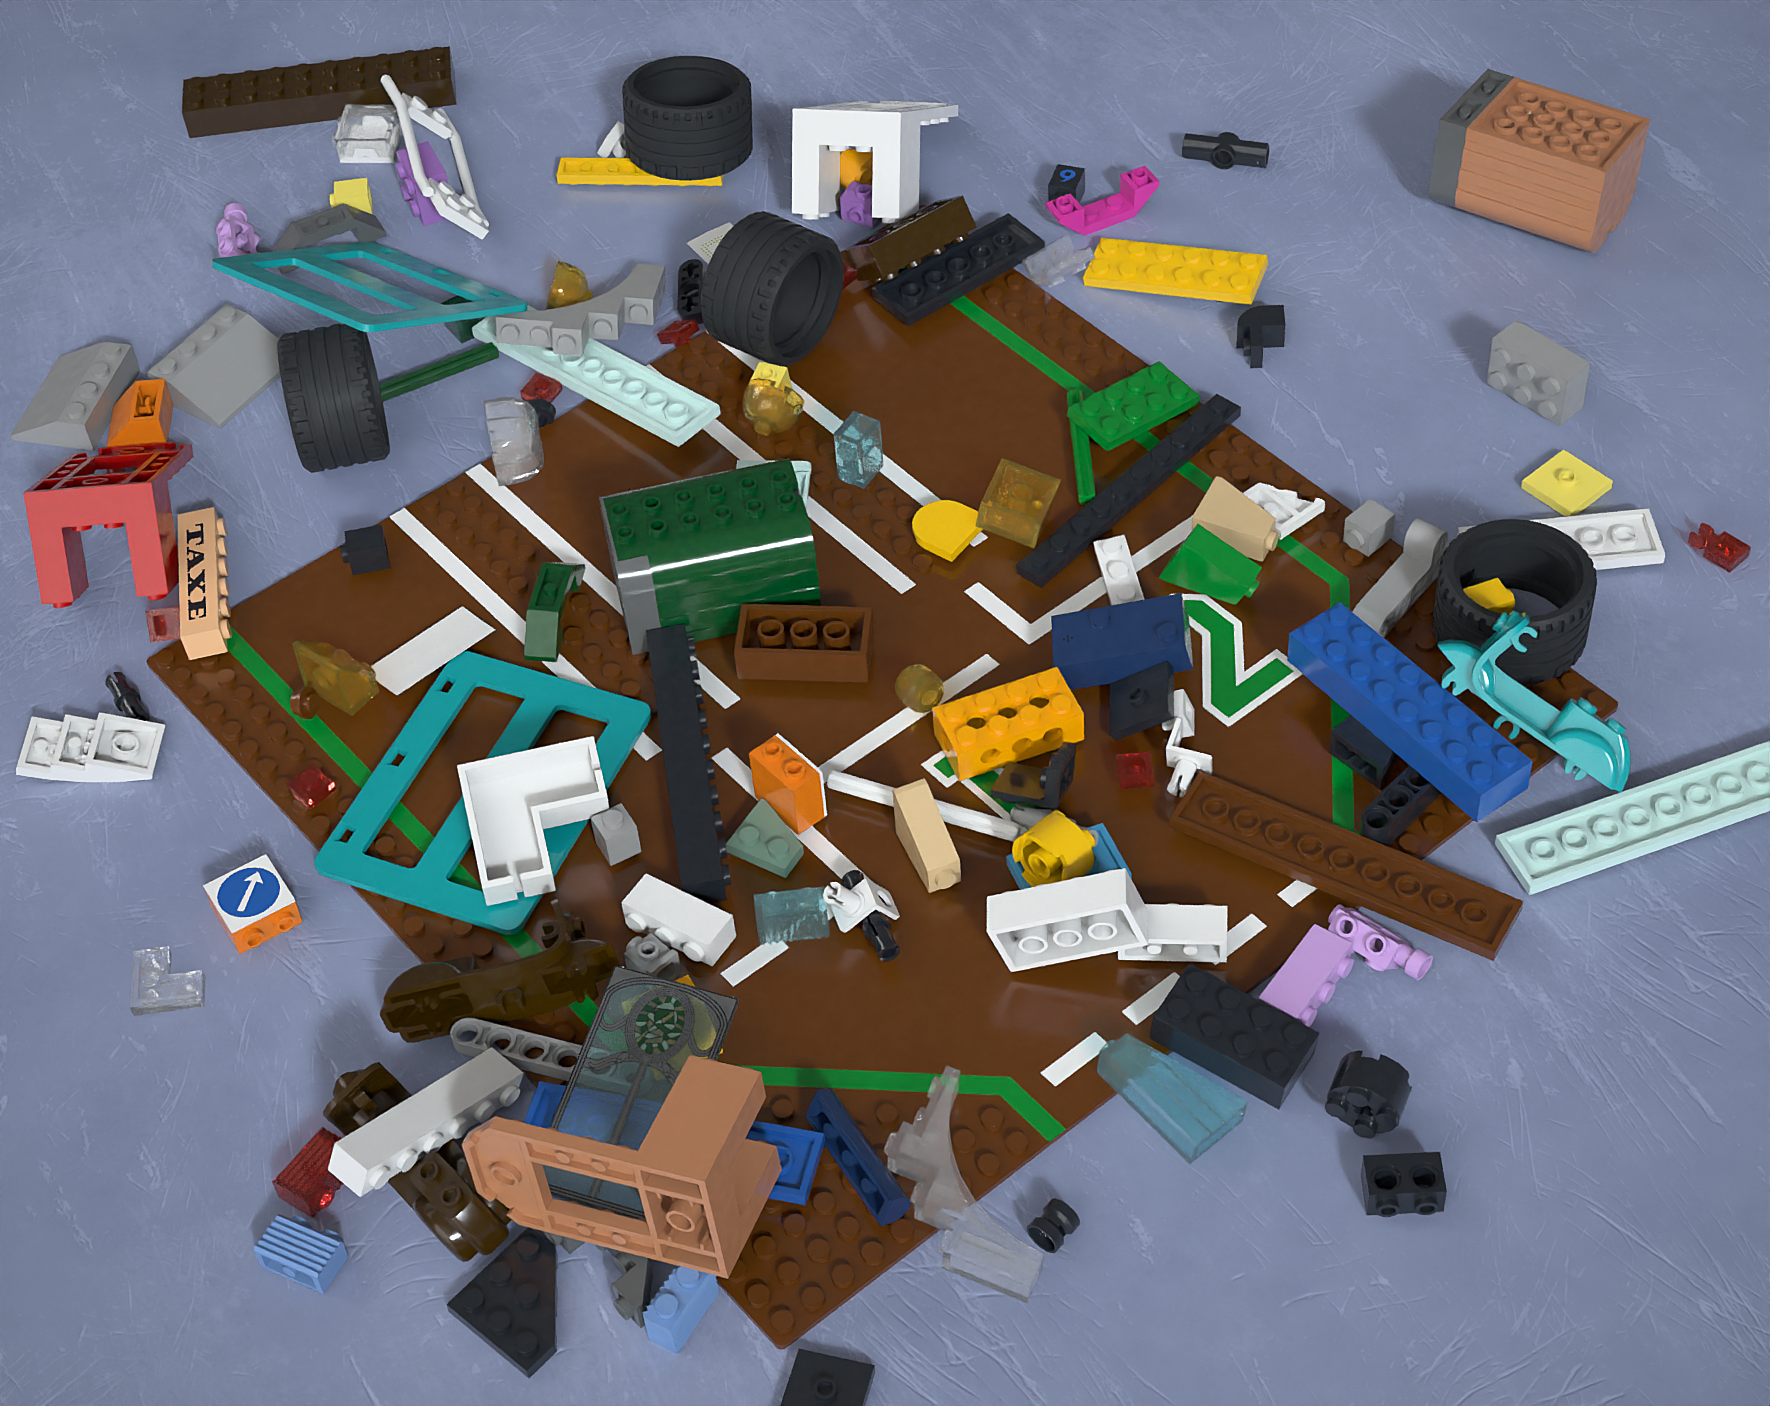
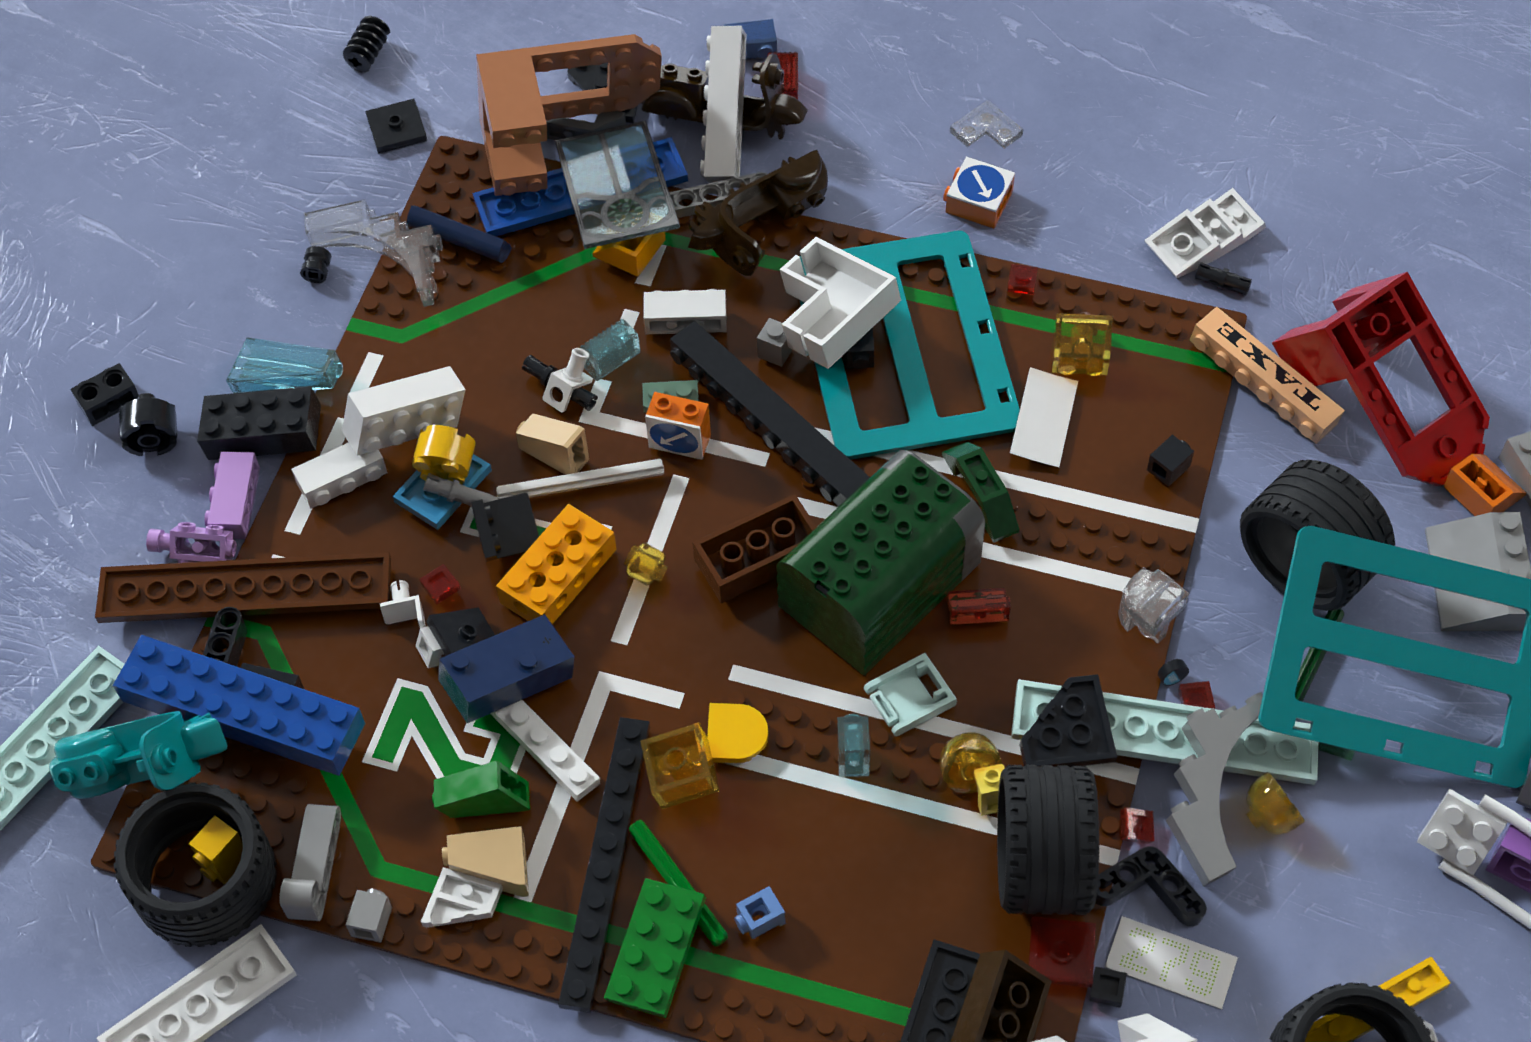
camera: 145 degrees right, 10 degrees up
(163, 623) = (1258, 325): clear red brick -> none
(652, 957) = (680, 276): light grey brick -> none
(672, 378) = (1071, 728): none -> black plate
(1030, 389) = (763, 904): none -> medium blue brick

